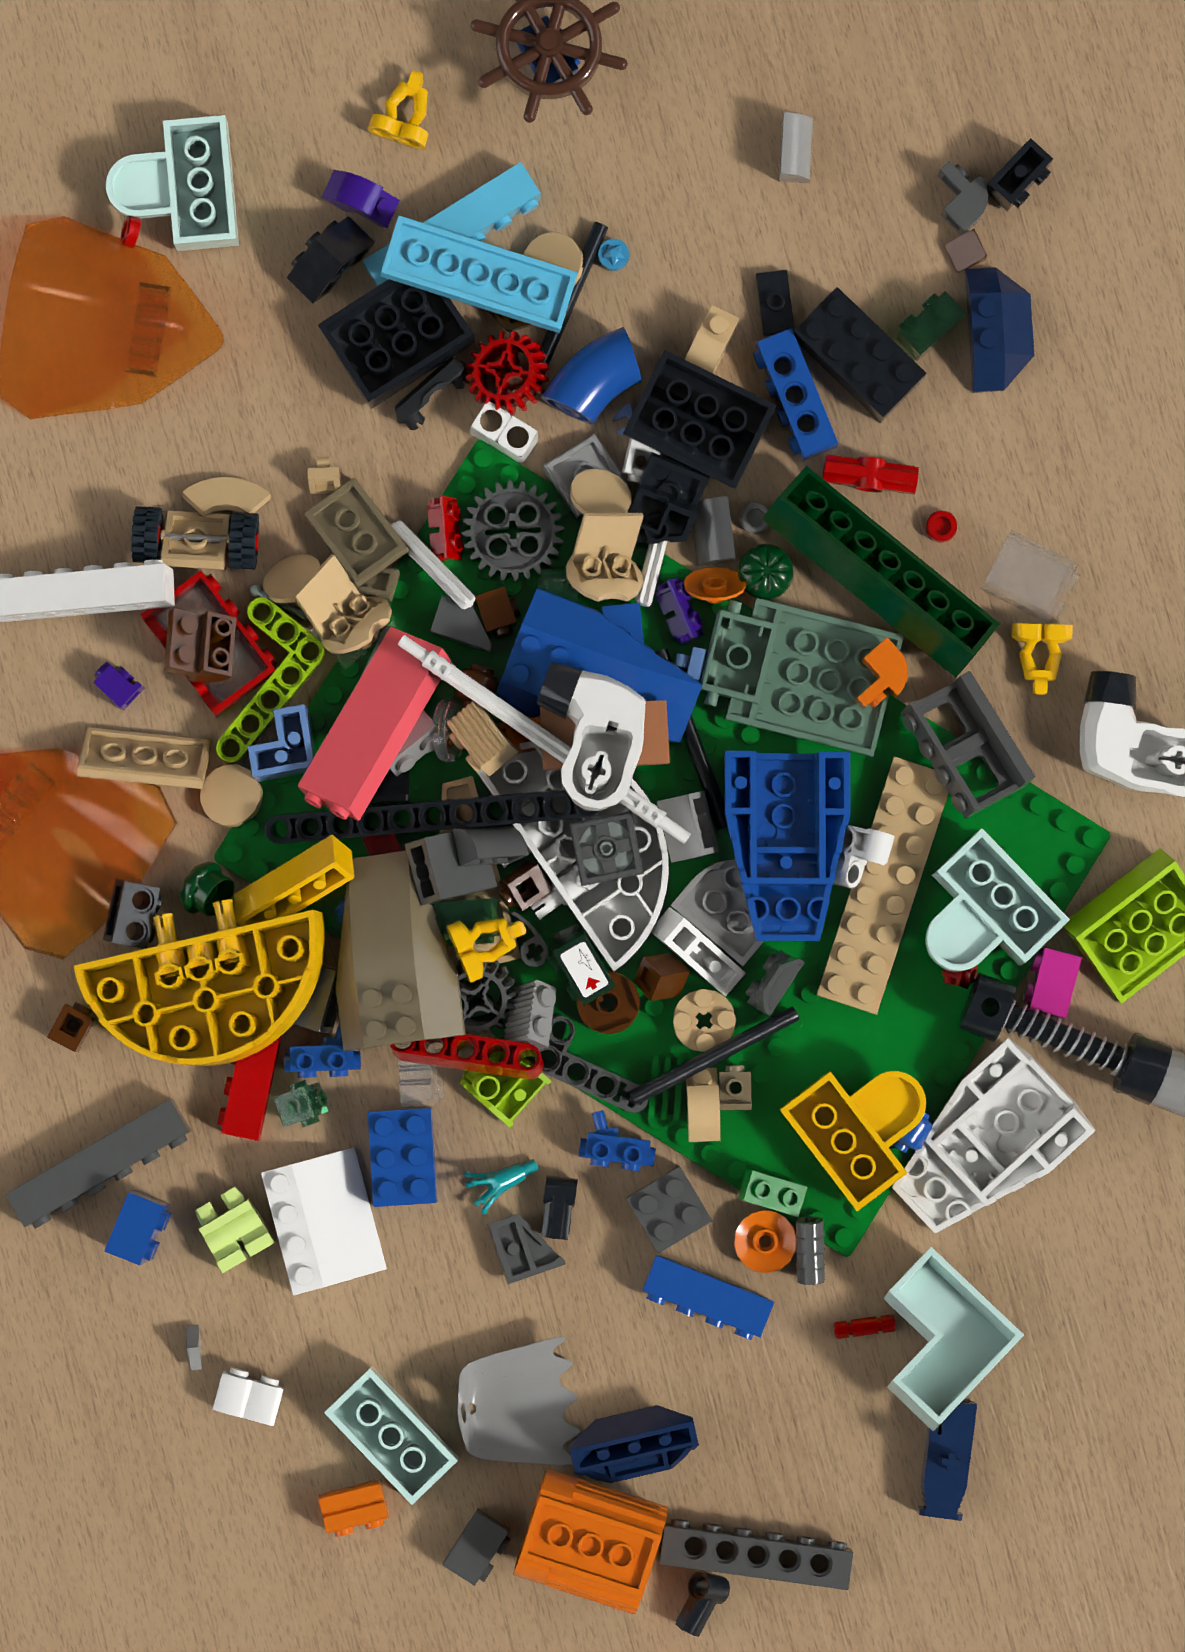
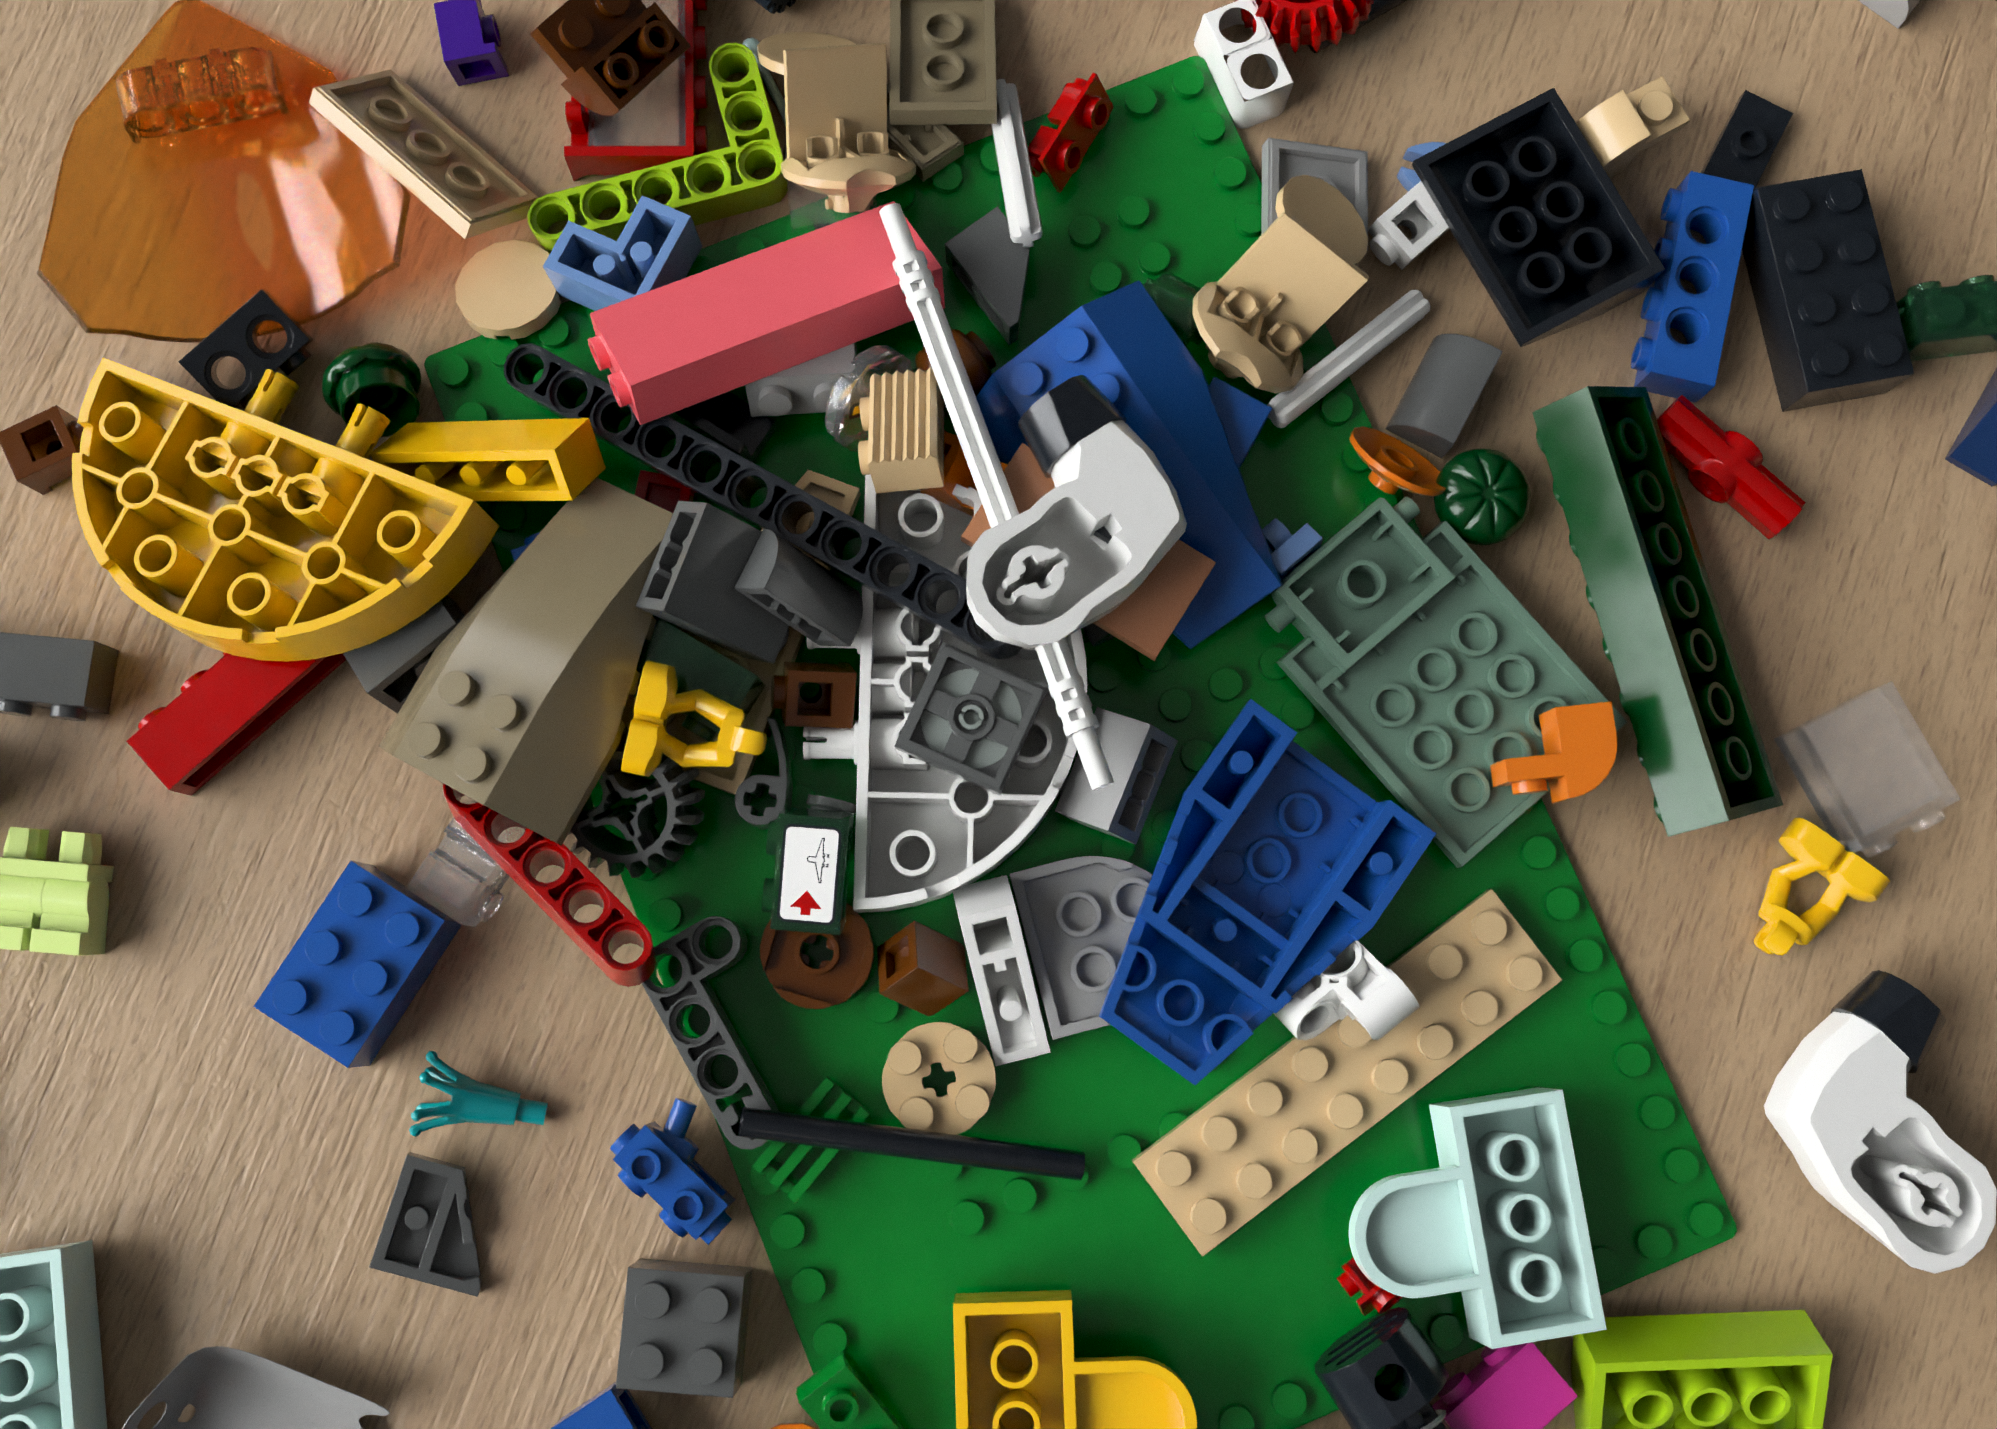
camera: 40 degrees right, 5 degrees down
(302, 1104) = (274, 783): clear green brick -> none
(323, 1221) = (176, 976): white slope -> none
(328, 1057) = (340, 730): blue brick -> none
(497, 611) = (1058, 284): reddish brown brick -> none
(503, 1094) = (565, 979): lime slope -> none
(514, 560) = (1186, 159): dark grey gear -> none
(532, 1014) = (689, 890): light grey brick -> none
(558, 1200) = (538, 1192): black piece -> none
(594, 377) = (1422, 67): blue brick -> none
(668, 500) = (1413, 298): black slope -> none
(687, 621) = (1325, 444): dark purple hinge -> none
(702, 765) = (1197, 712): black piece -> none
(703, 1106) = (844, 1210): tan brick -> none
(732, 1101) = (899, 1239): dark tan brick -> none
(751, 518) = (1511, 418): light grey tile -> none
(780, 973) = (1083, 1100): dark grey slope -> none
(941, 526) = (1777, 611): red tile -> none
(982, 738) = (1645, 953): dark grey window -> none

